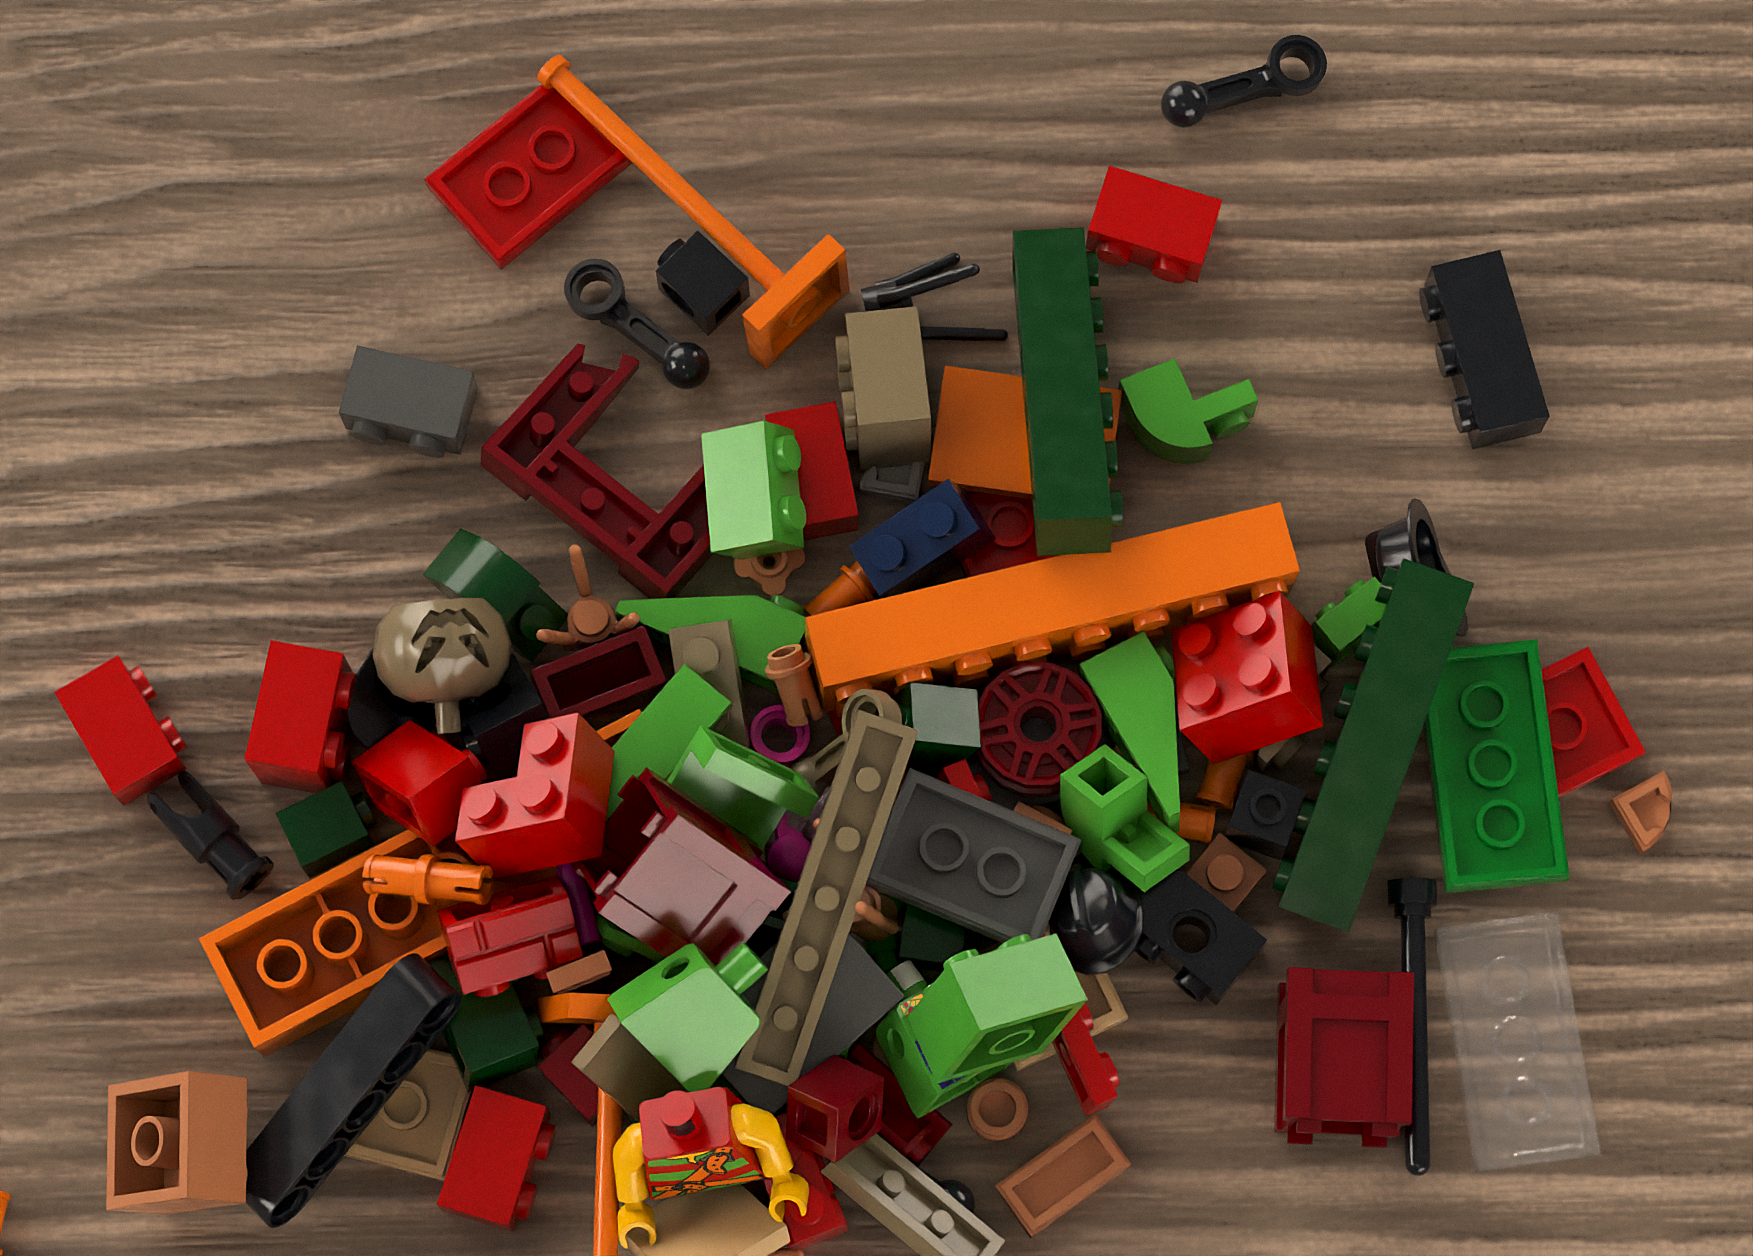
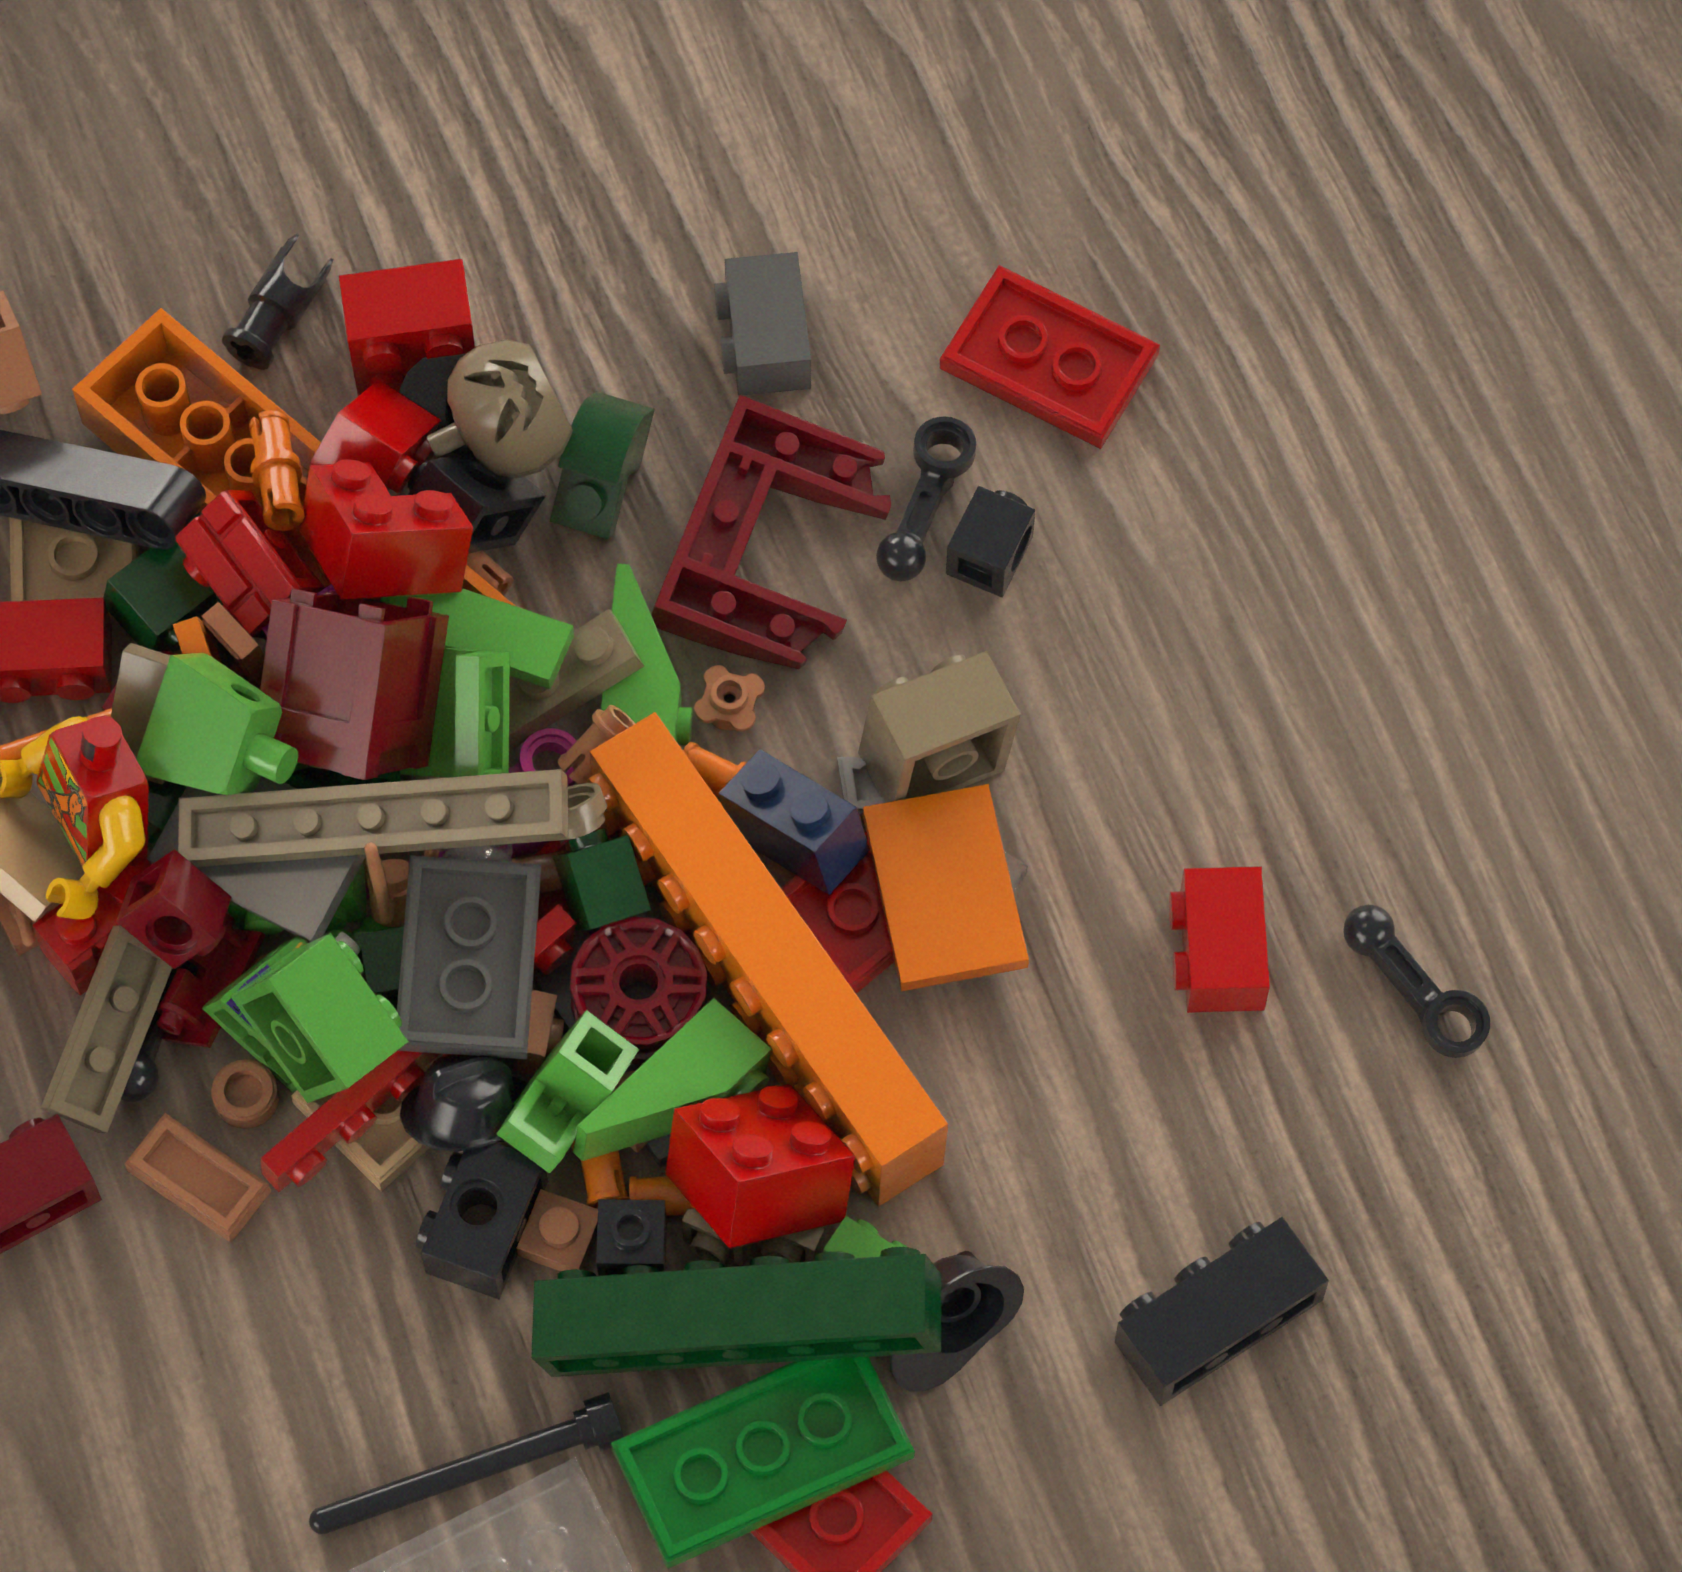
camera: 70 degrees right, 10 degrees down
(121, 729) = (352, 192): red brick -> none
(328, 827) = (312, 388): dark green brick -> none
(590, 618) = (605, 548): nougat plant -> none
(598, 675) = (546, 570): dark red brick -> none
(753, 490) = (781, 639): brick -> none
(792, 299) = (1002, 617): orange tile -> none
(823, 470) = (825, 704): red brick -> none
(898, 292) = (1042, 726): black plant -> none
(1062, 392) = (992, 887): dark green brick -> none
(1174, 423) = (1020, 1027): bright green brick -> none
(1344, 1054) = (395, 1391): dark red container -> none

